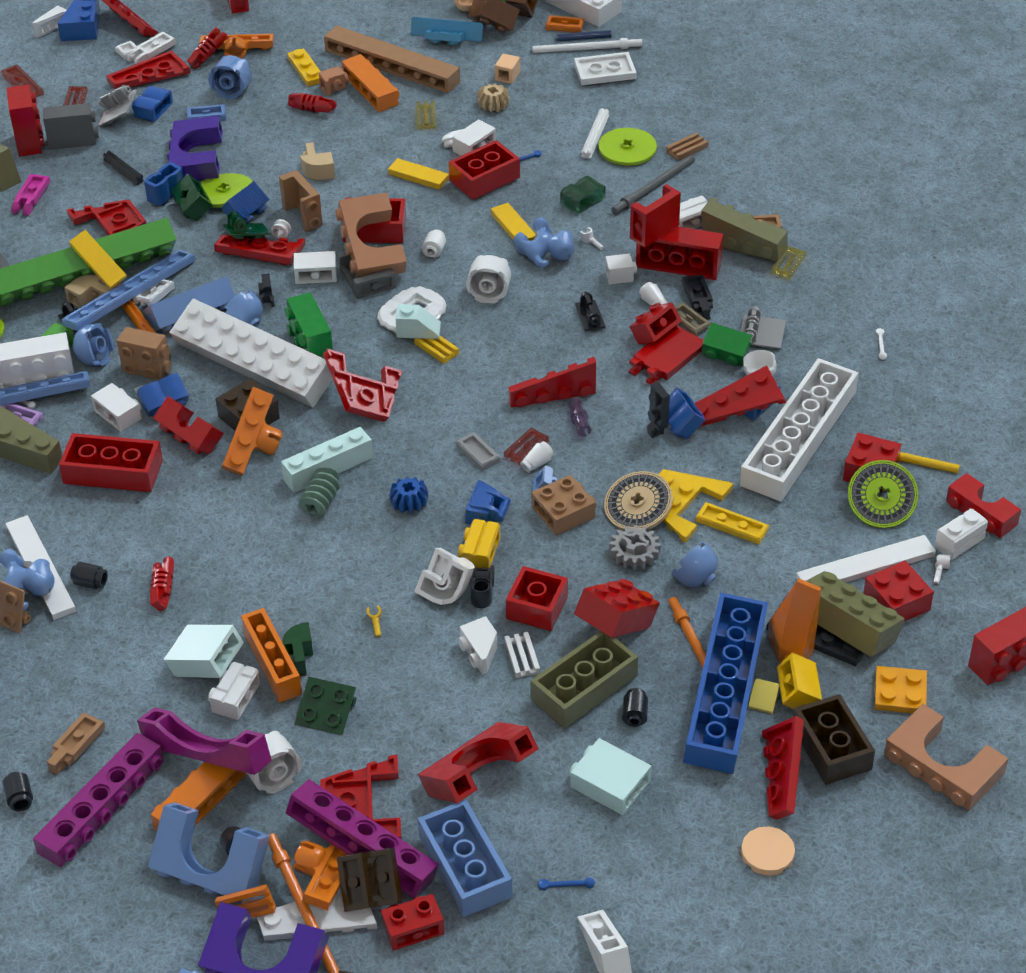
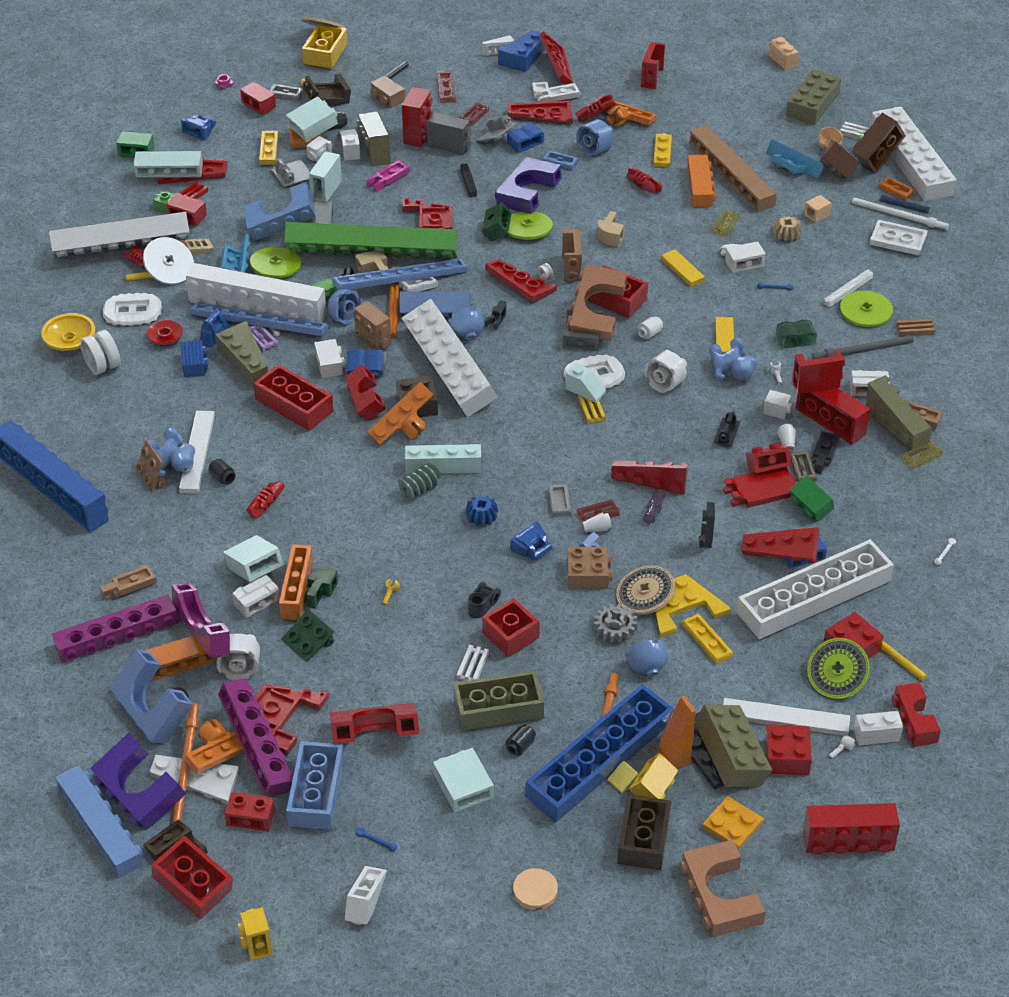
camera: 30 degrees right, 0 degrees up
(17, 791) = (69, 598): black brick -> none
(97, 259) = (386, 242): yellow tile -> none
(159, 184) = (481, 201): blue brick -> none
(239, 228) = (512, 259): dark green hinge -> none
(247, 202) = (532, 241): blue brick -> none
(255, 907) = (155, 737): orange tile -> none
(308, 324) = (501, 356): green brick -> none
(315, 267) = (546, 311): white brick -> none
(332, 80) = (673, 168): nougat brick -> none
(361, 394) = (504, 422): red wing -> none
(369, 879) = (238, 767): dark brown slope -> none
(445, 577) = (456, 583): white brick -> none
(480, 543) = (504, 570): yellow brick -> none
(480, 642) = (448, 641): white slope -> none
(484, 169) = (732, 283): red brick -> none
(617, 608) = (558, 660): red brick -> none
(683, 414) = (732, 537): blue brick -> none
(759, 359) = (827, 524): white hair -> none
(764, 330) = (854, 500): light grey hinge -> none
(783, 757) = (610, 812): red wing -> none

